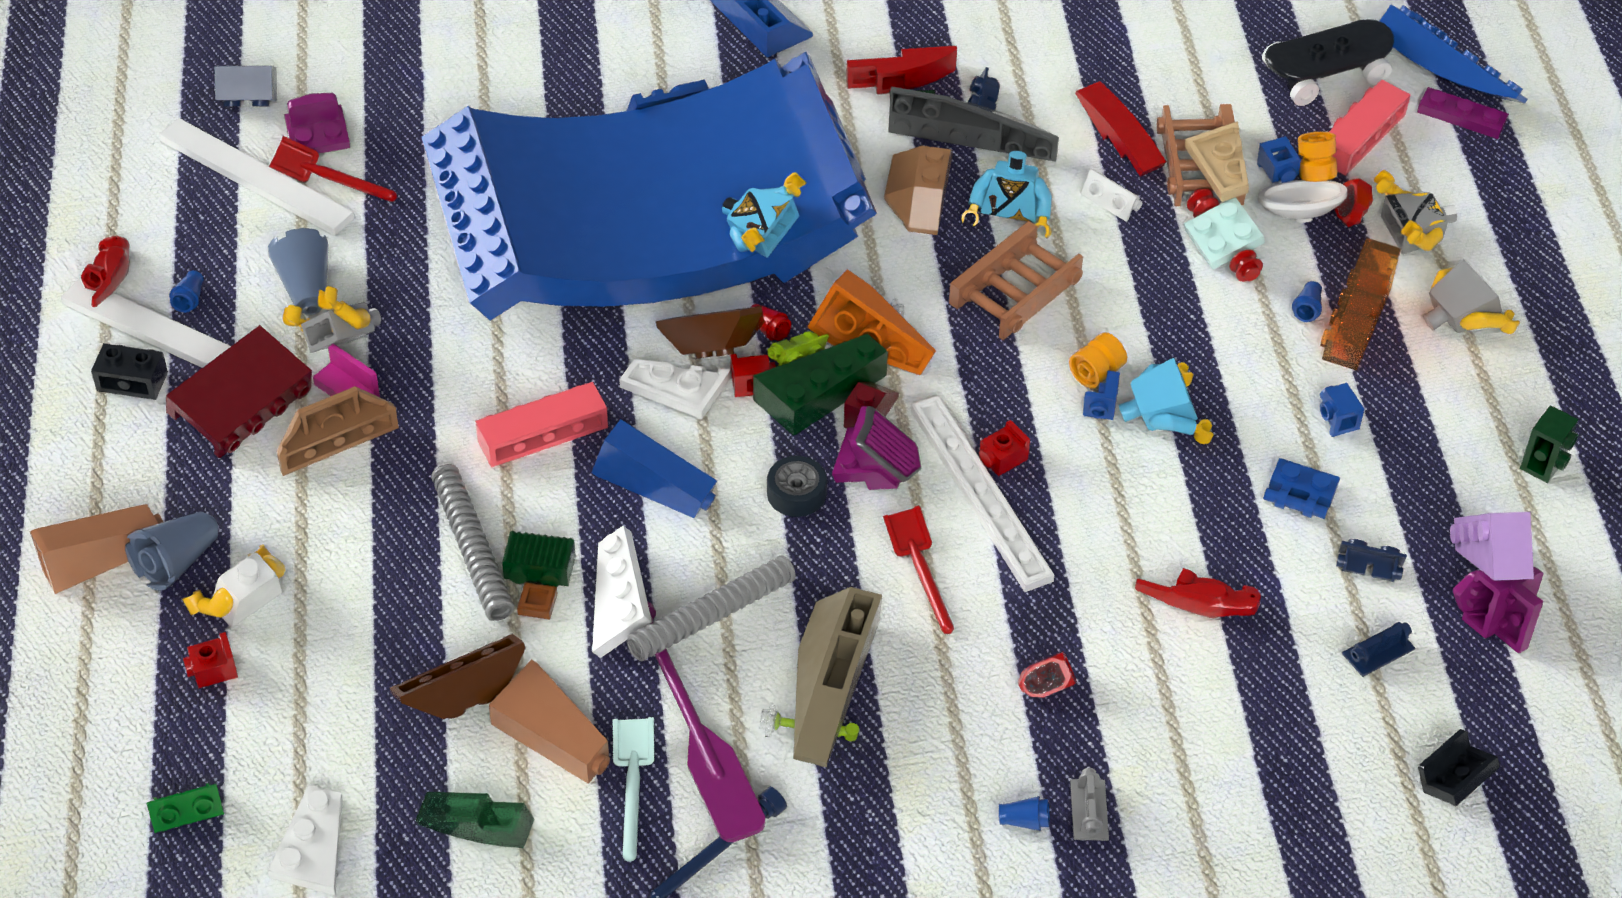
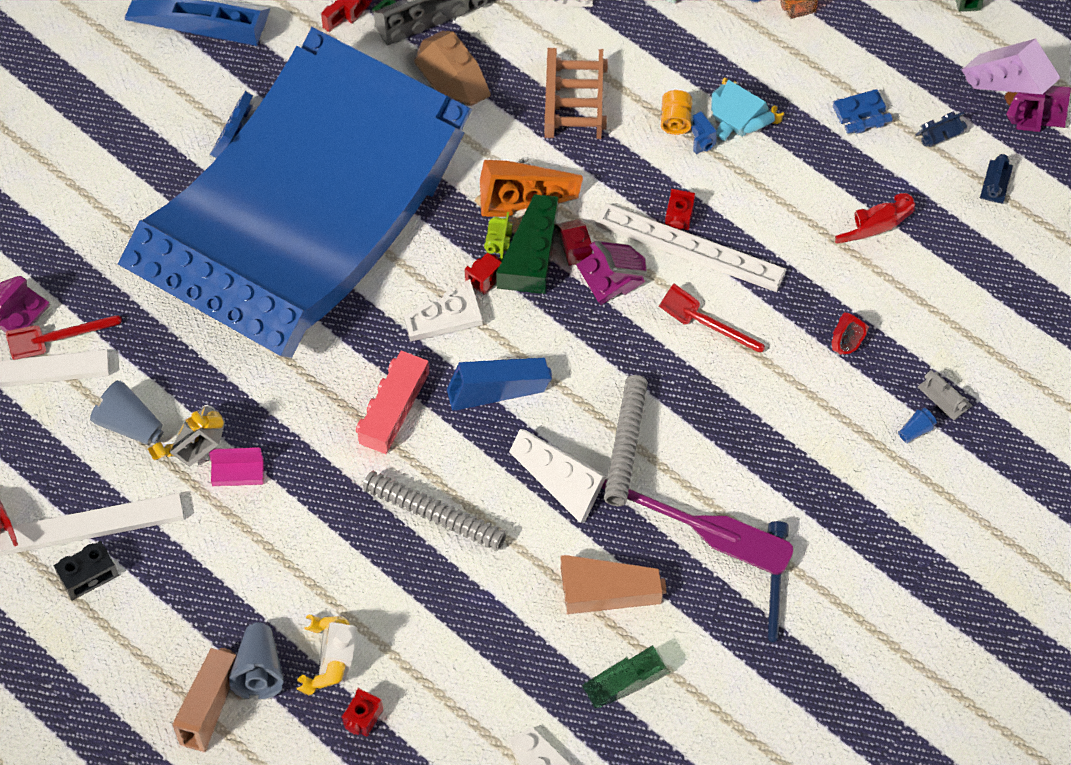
camera: 40 degrees left, 10 degrees up
(186, 293) = (60, 489): blue cone -> none
(240, 390) = (180, 526): dark red panel -> none
(334, 427) = (266, 504): medium nougat wedge -> none
(463, 681) = (528, 598): reddish brown wedge -> none
(537, 600) = (511, 516): dark orange tile -> none
(538, 559) = (488, 490): dark green brick -> none
(632, 748) = (669, 561): light aqua piece -> none
(712, 331) = (437, 263): reddish brown wedge -> none
(763, 216) = (404, 161): medium azure torso -> none
(772, 720) = (727, 482): piece -> none
(776, 324) = (456, 229): red cone -> none
(796, 486) = (586, 313): black wheel -> none
(830, 667) = (731, 423): dark tan wedge -> none
(1012, 192) = (515, 35): medium azure torso -> none
(1341, 409) = (836, 44): blue brick -> none

